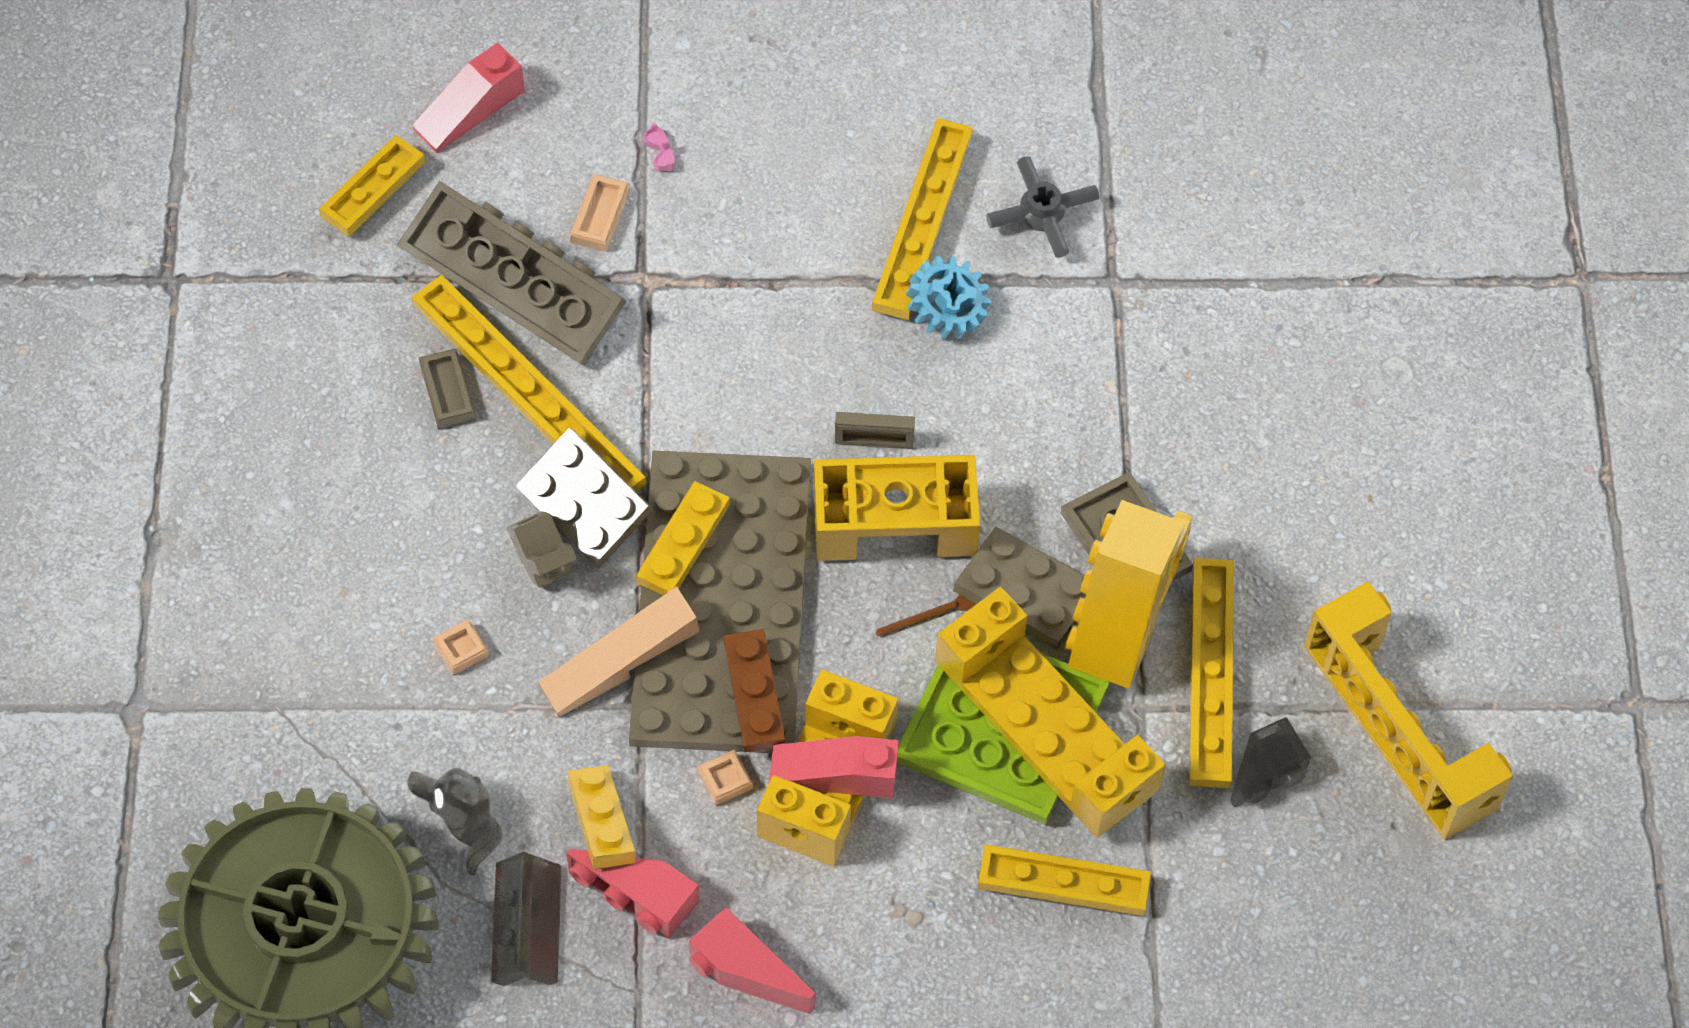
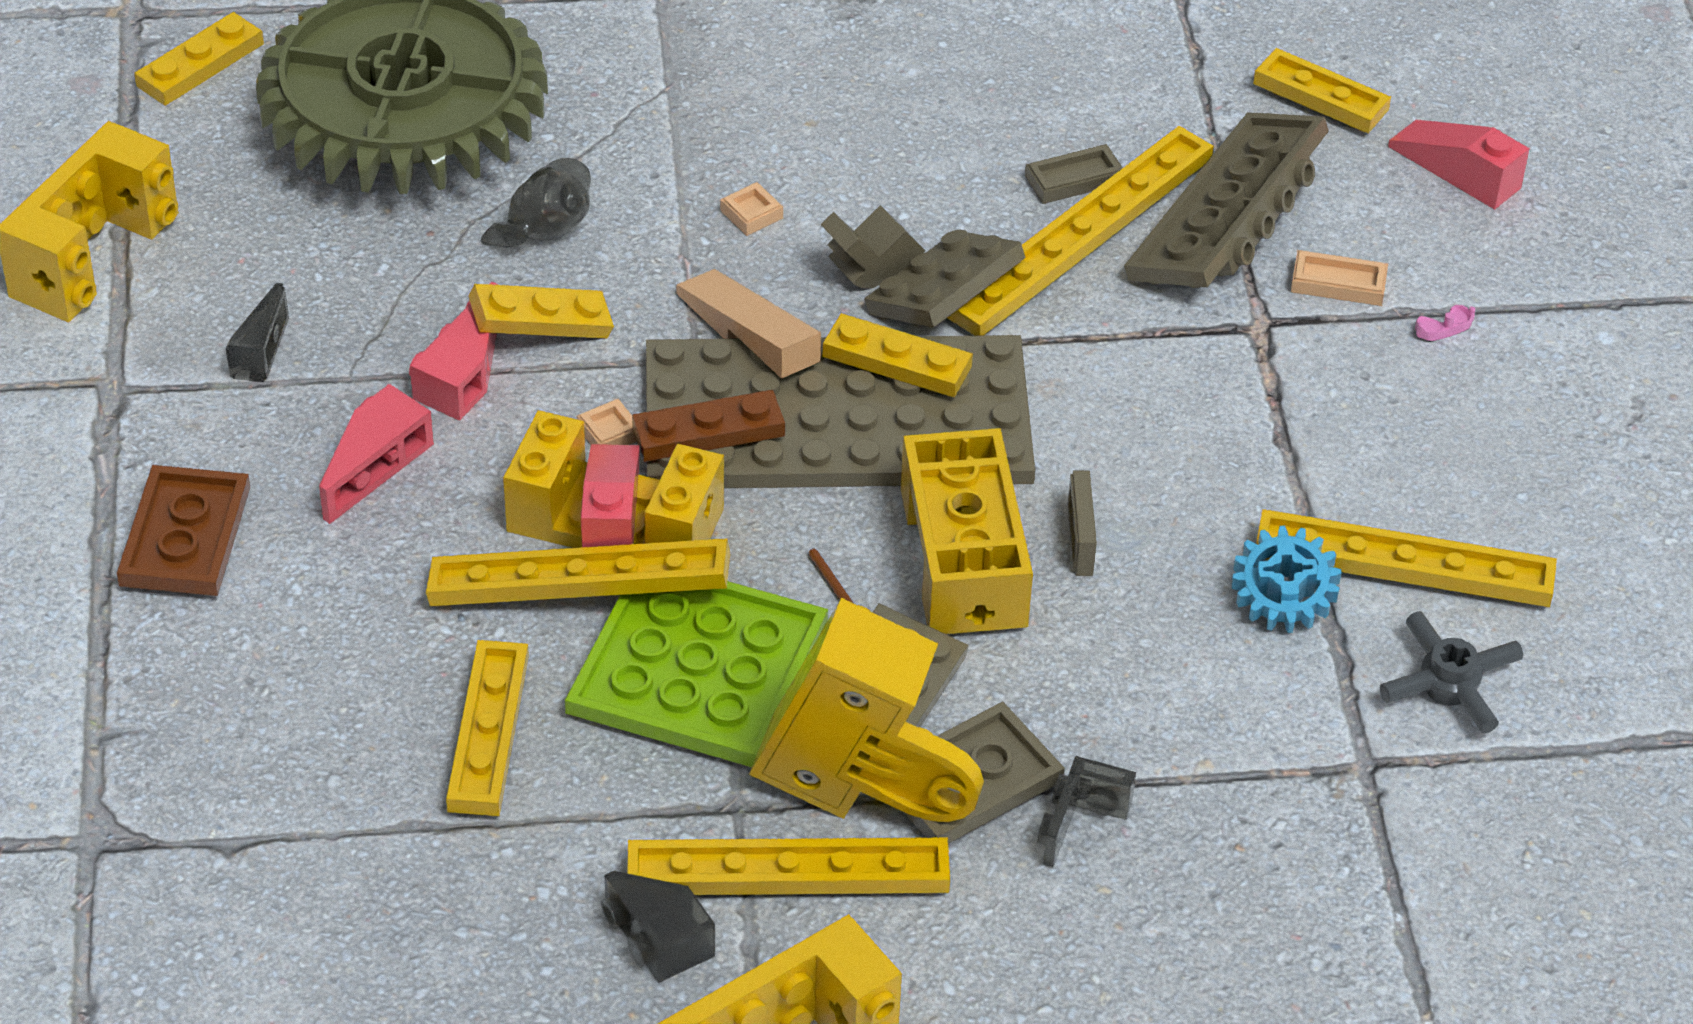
camera: 85 degrees right, 15 degrees down
(526, 920) = (419, 279): clear smoke panel -> none
(918, 800) = (579, 572): none -> yellow plate
(1045, 716) = (695, 685): yellow plate -> none
(1152, 473) = (1087, 786): none -> clear smoke bracket

